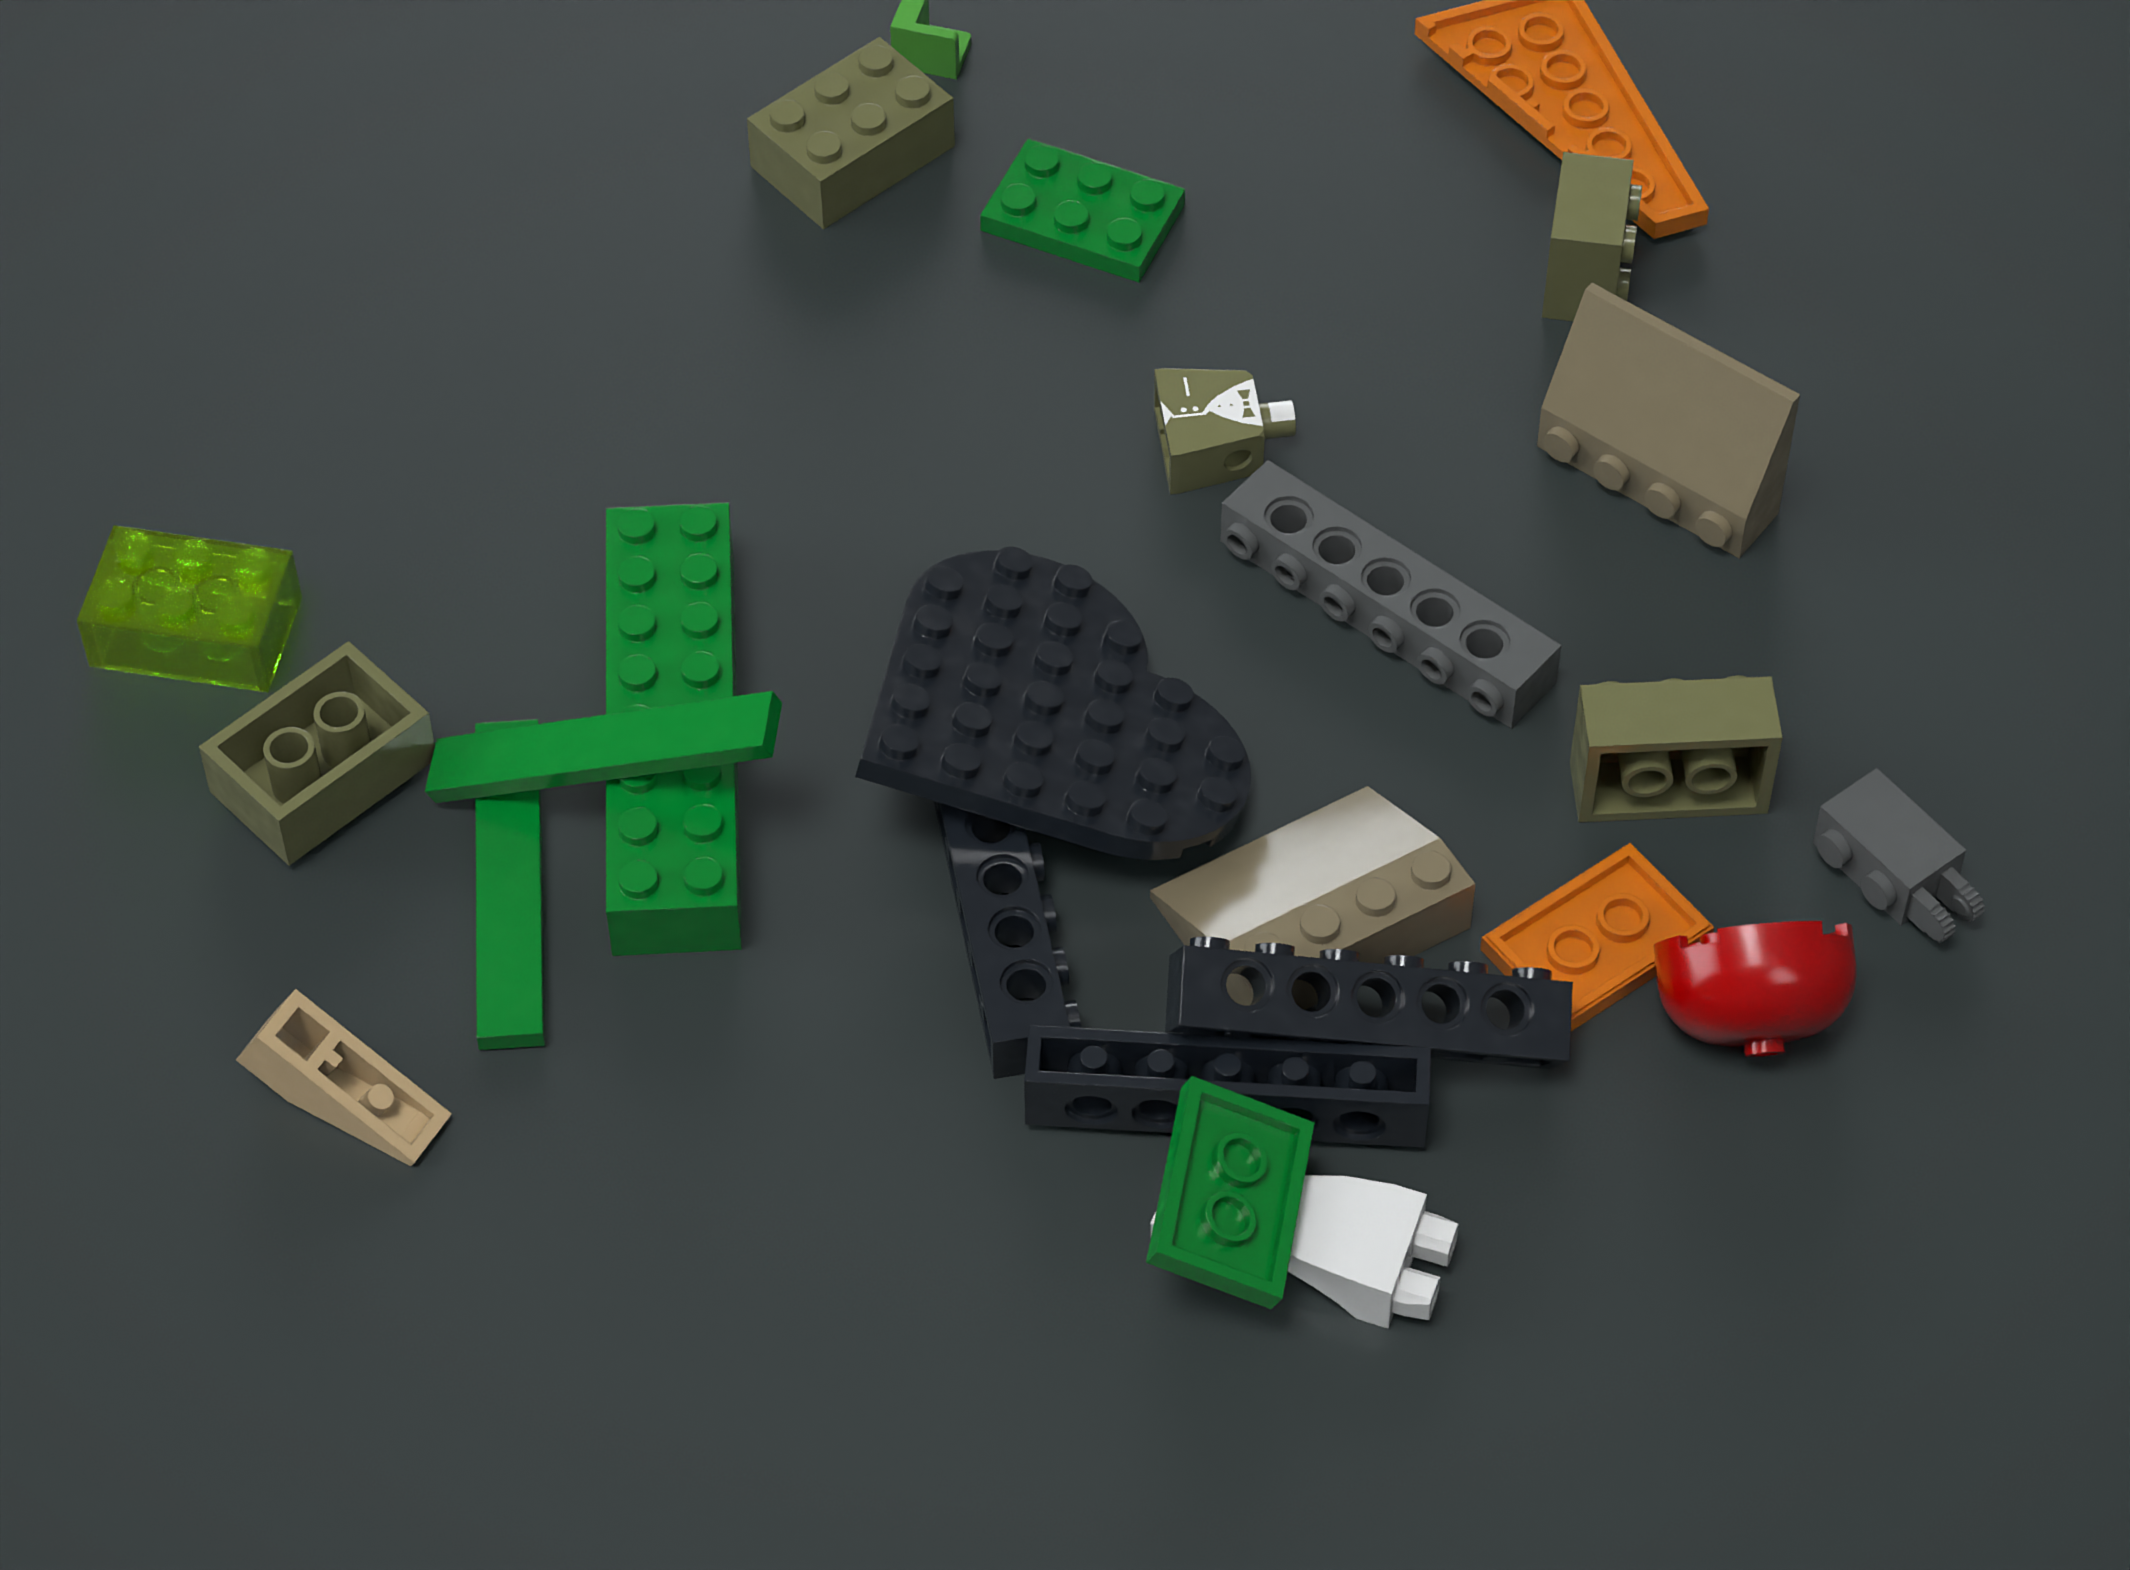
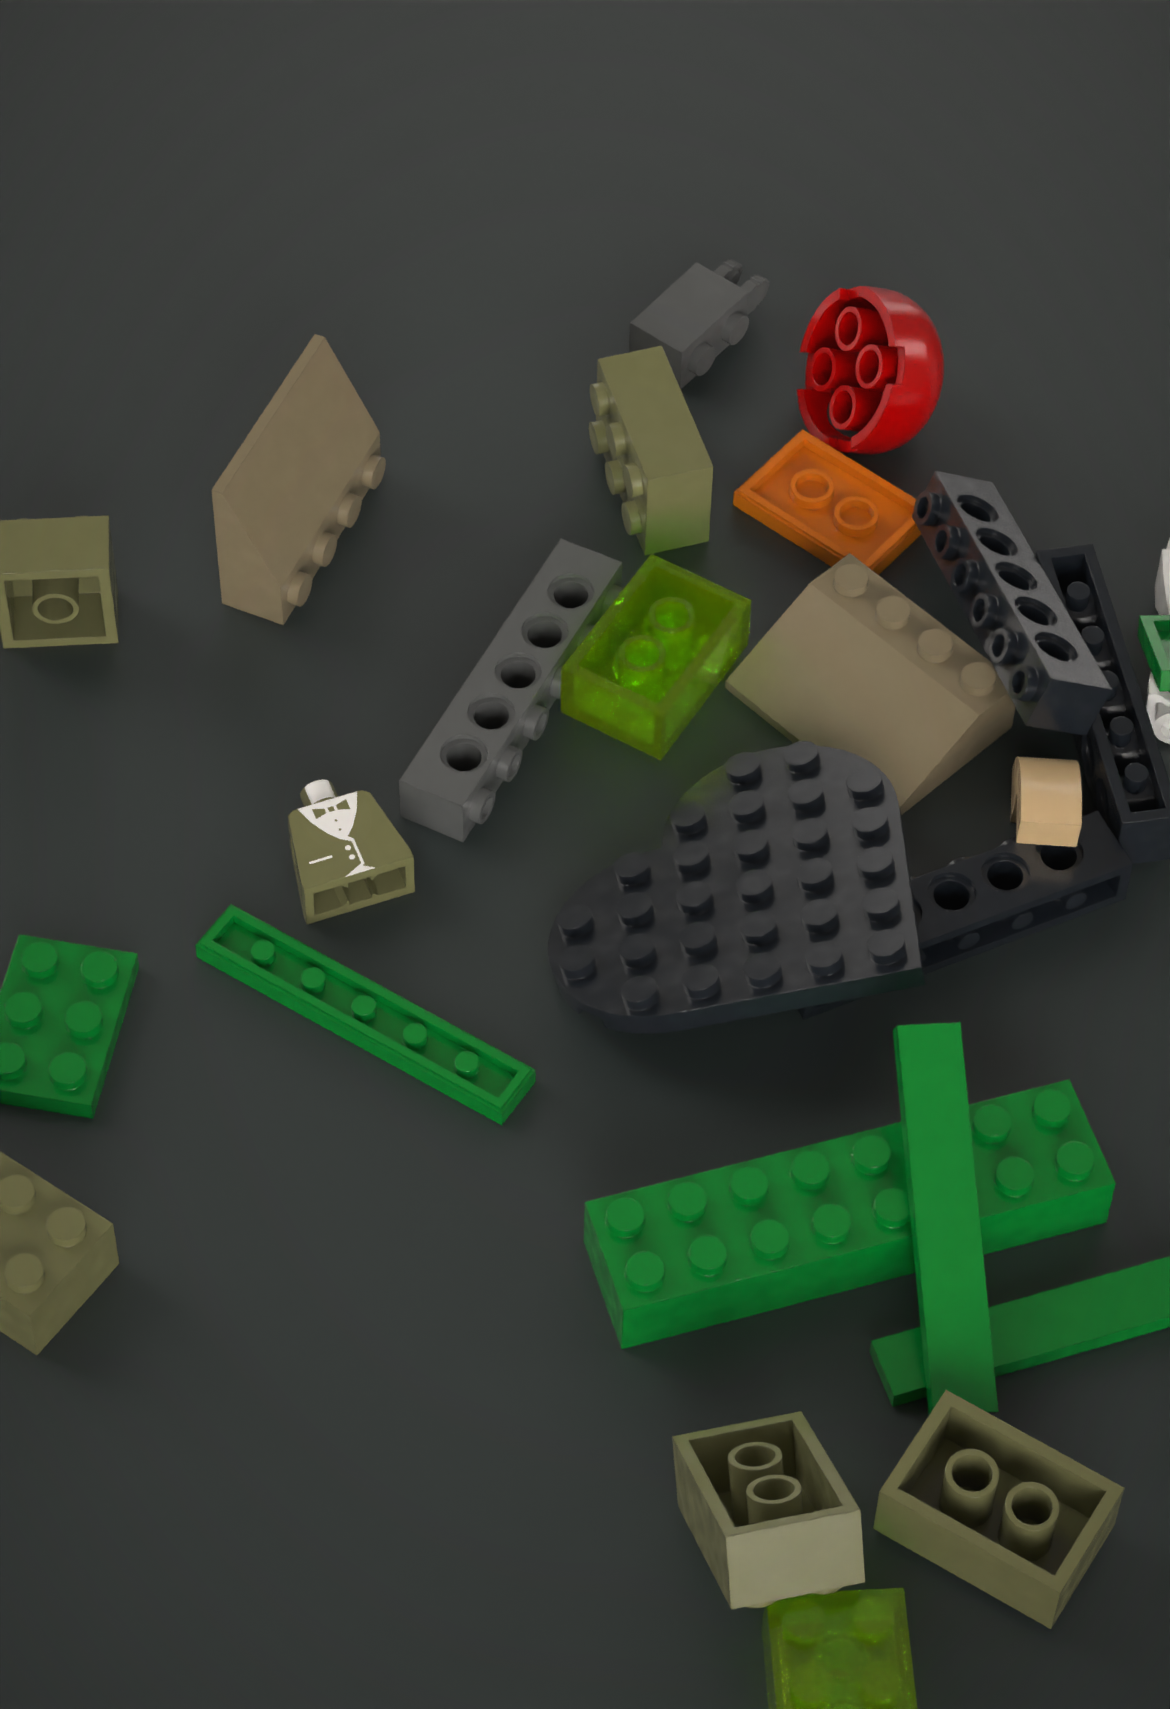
camera: 105 degrees left, 0 degrees up
(366, 561) = (768, 1510): none -> olive brick
(1028, 428) = (366, 1014): none -> green tile
(1094, 971) = (1046, 801): none -> tan brick
(1388, 704) = (655, 656): none -> clear neon green brick

